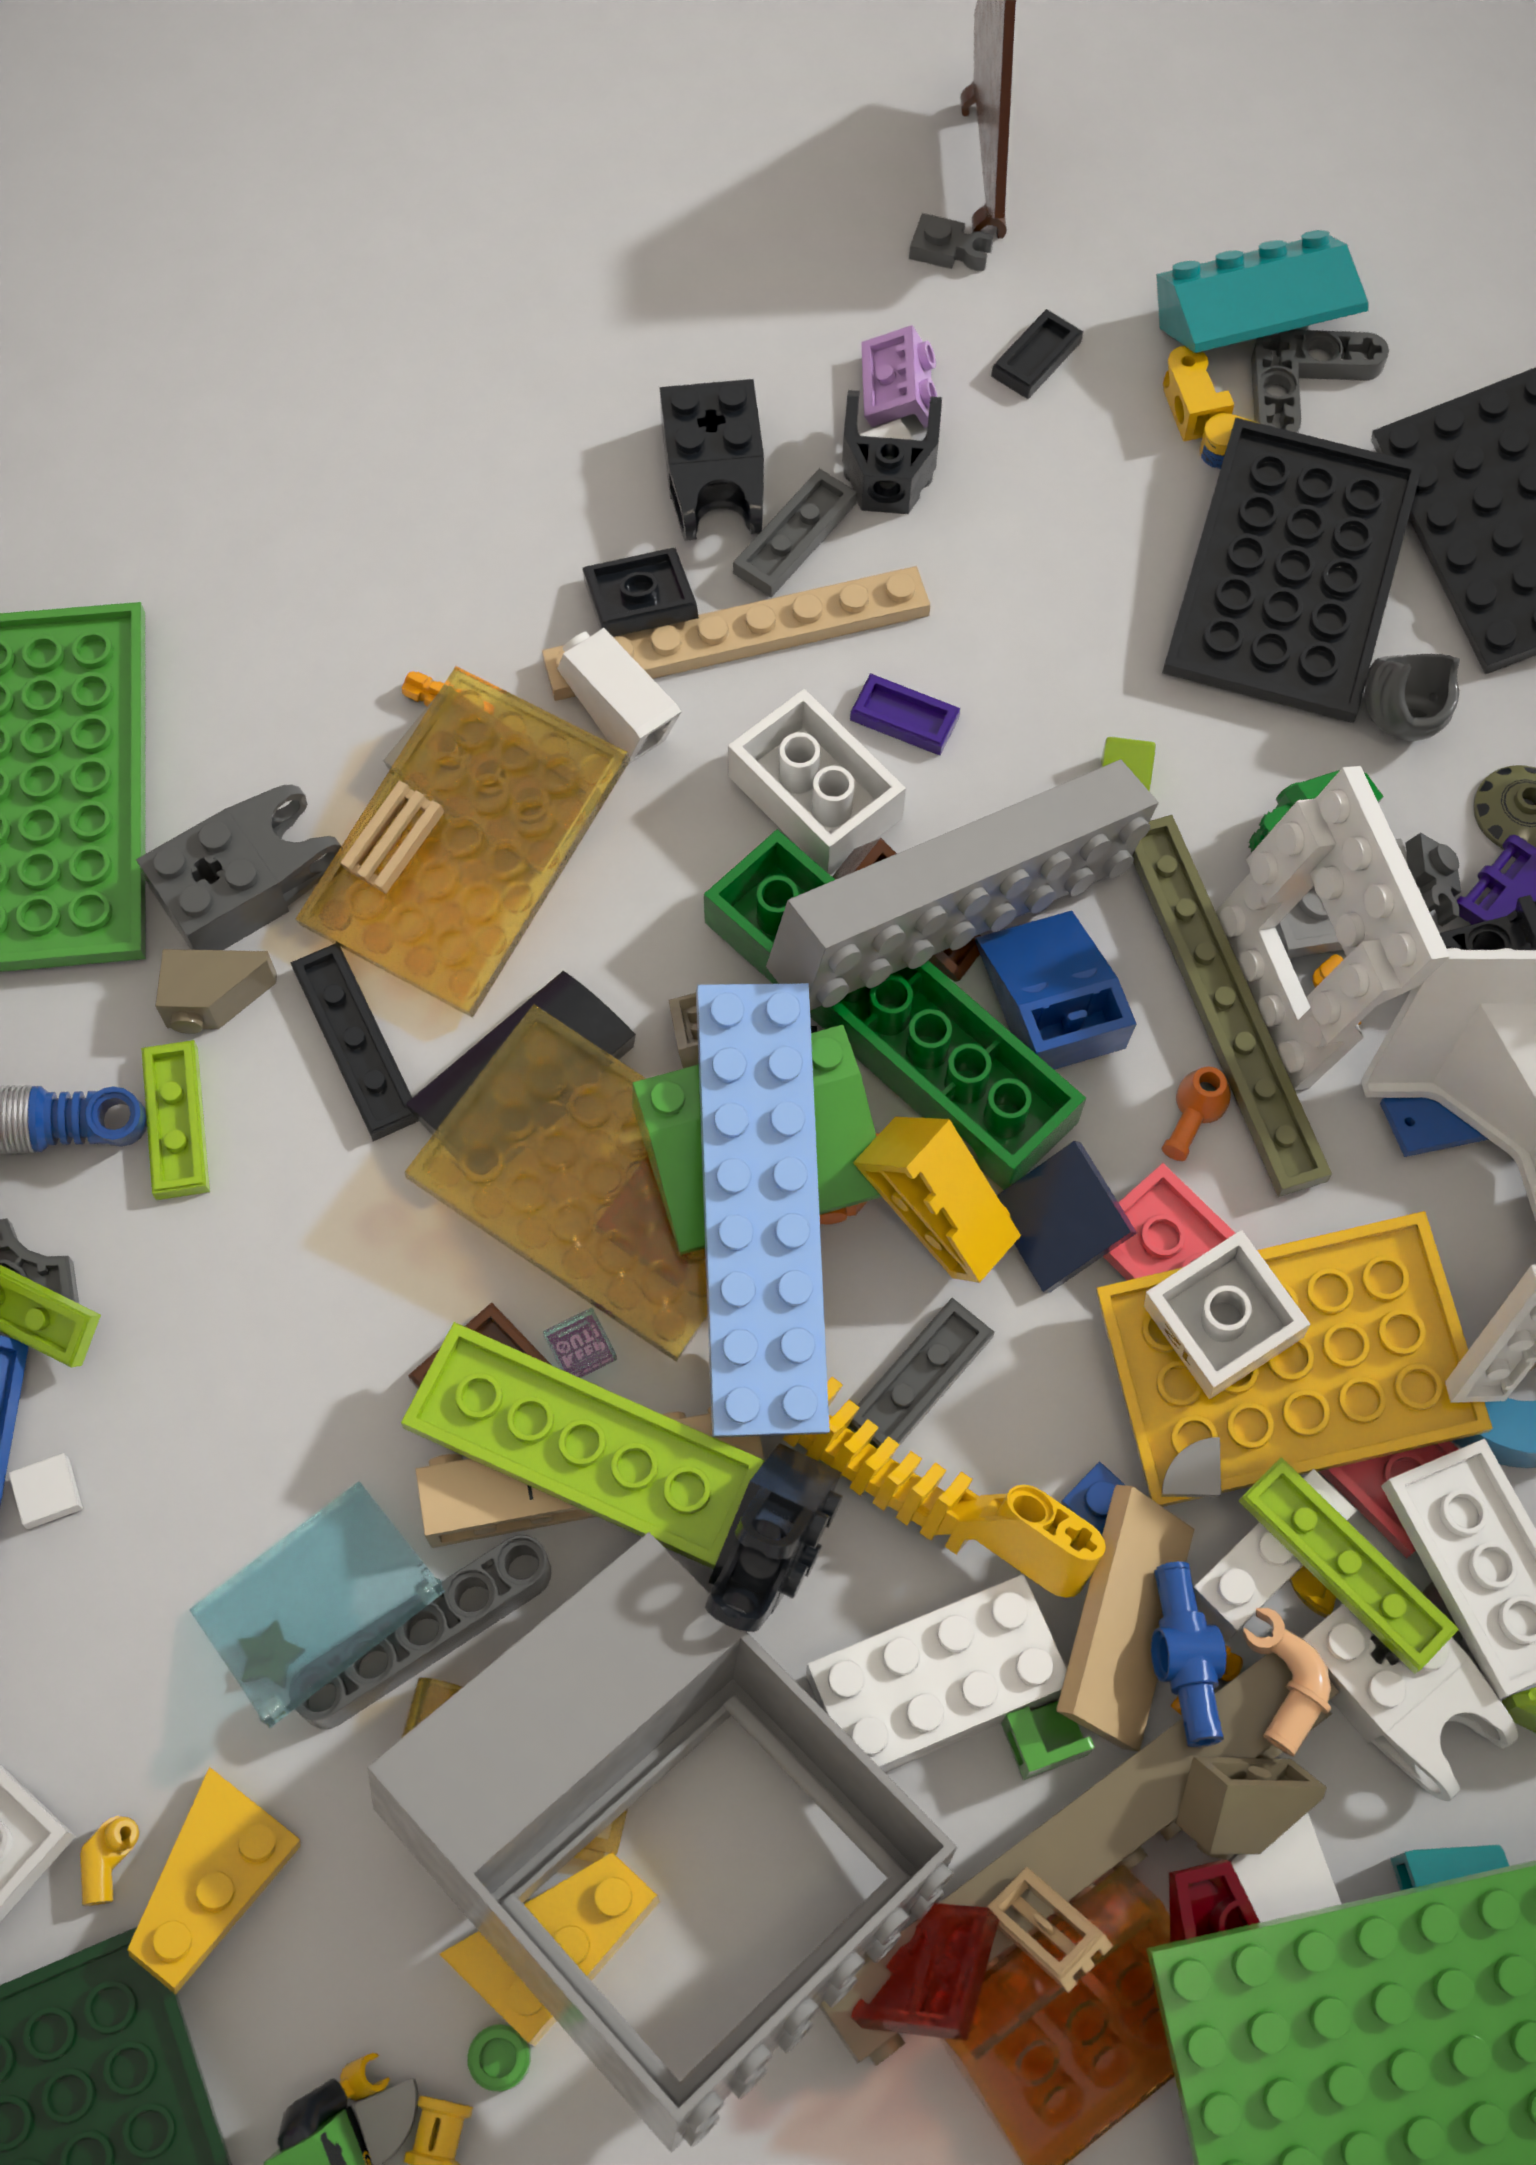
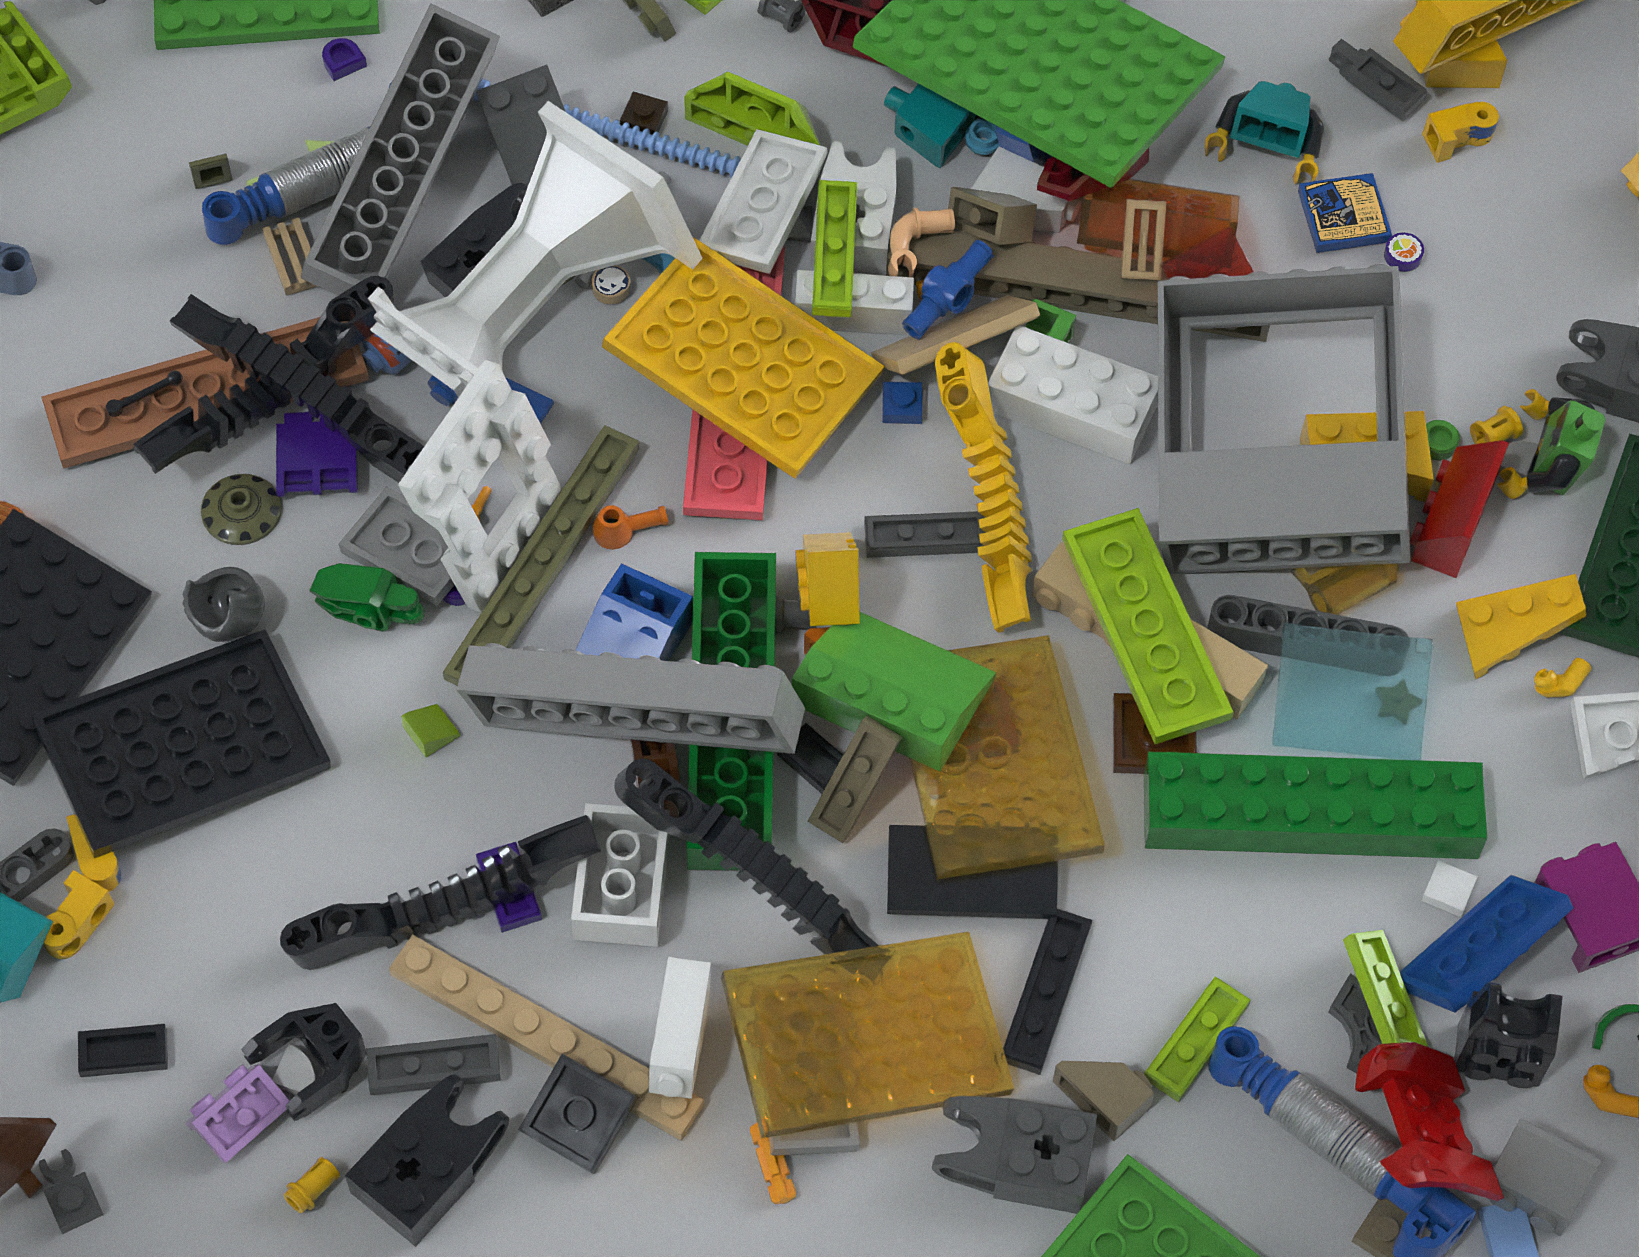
camera: 135 degrees left, 5 degrees down
(244, 1442) = (1314, 805): none -> green brick
(379, 824) = (910, 1048): tan tile -> none
(389, 1959) = (1457, 506): none -> red slope
(580, 1344) = (1088, 706): clear light blue tile -> none
(761, 1211) = (937, 629): light blue plate -> none
(773, 1538) = (1099, 484): black brick -> none
(781, 376) = (311, 1185): none -> yellow pin
(854, 814) = (742, 849): none -> black piece
(914, 674) = (314, 938): none -> black piece
(1065, 1216) = (768, 523): dark blue tile -> none
(1195, 1471) = (851, 352): light grey tile -> none
(1226, 1314) = (763, 379): white brick -> none
(1436, 874) = (348, 510): dark grey plate -> none

